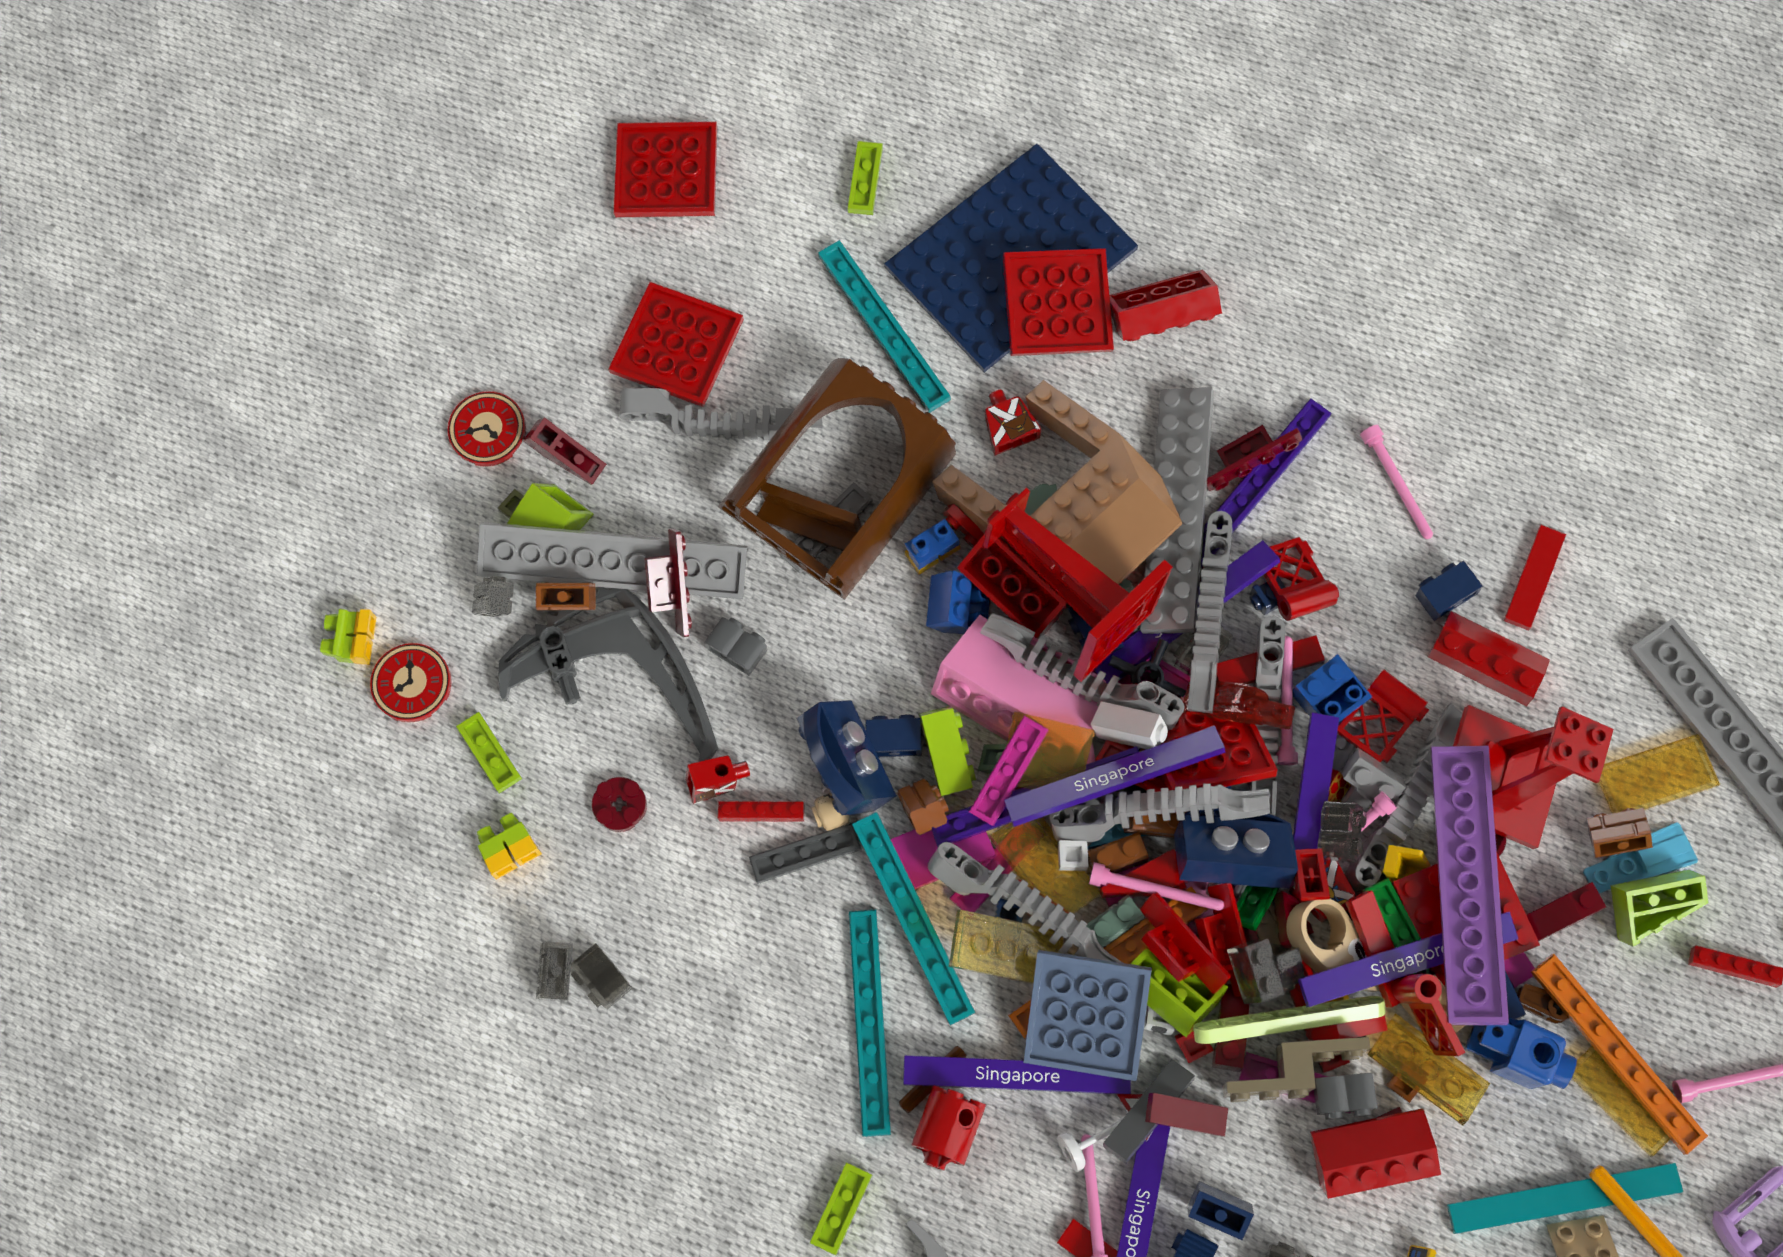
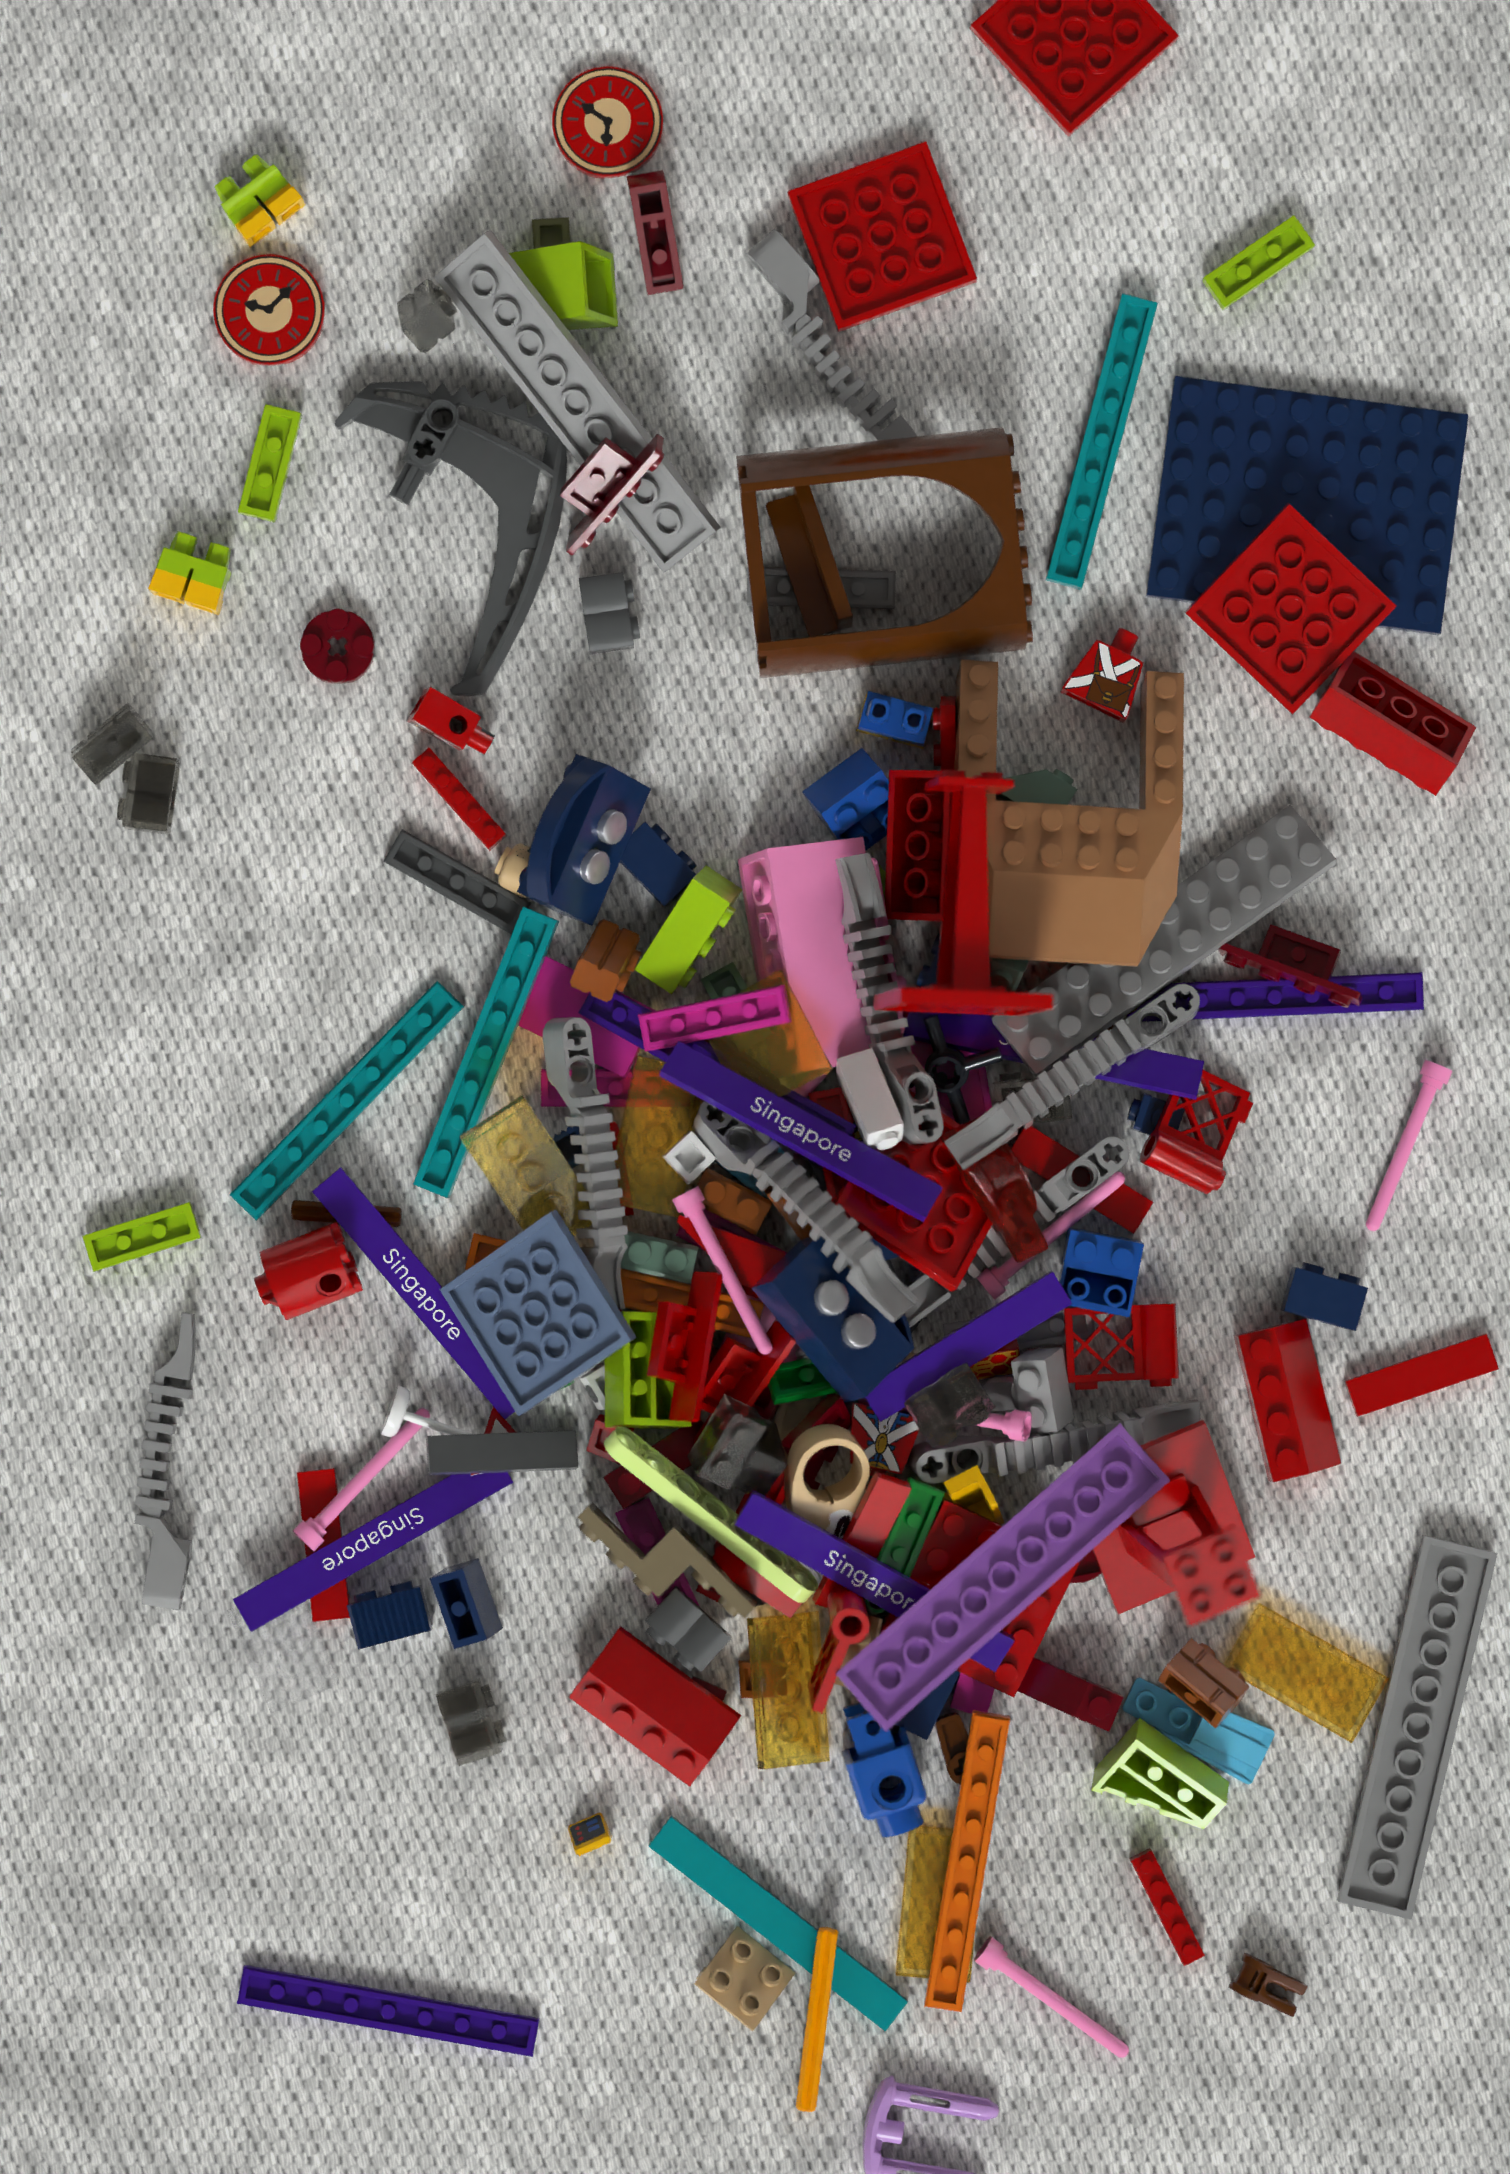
camera: 35 degrees right, 15 degrees up
(565, 596) = (494, 391): dark orange brick -> none
(1186, 1114) = (530, 1492): dark red tile -> none
(1311, 875) = (873, 1414): red slope -> none

